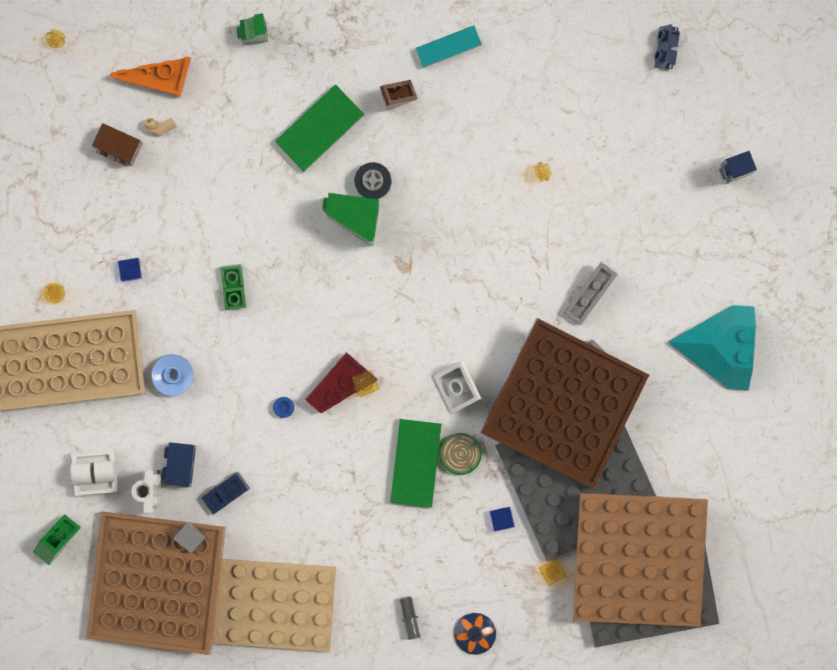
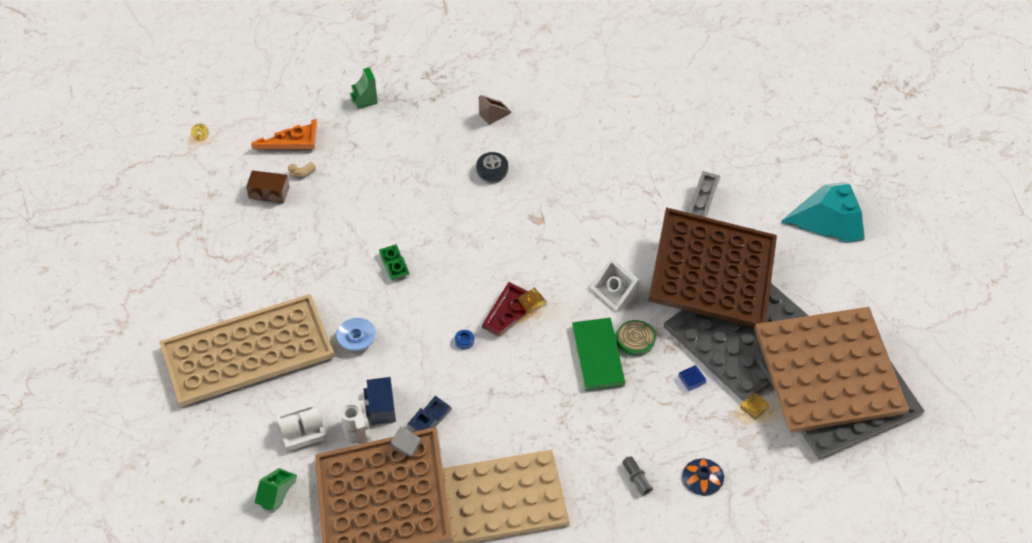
camera: 15 degrees left, 35 degrees down
(54, 293) = (233, 300): clear yellow plate -> none
(130, 269) = (298, 270): clear blue tile -> none
(319, 128) = (436, 145): green tile -> none
(353, 214) = (482, 185): green slope -> none
(448, 46) = (524, 75): teal tile -> none
(543, 171) = (630, 131): clear yellow plate -> none
(667, 37) = (696, 40): dark blue hinge -> none
(737, 167) = (786, 91): dark blue brick -> none

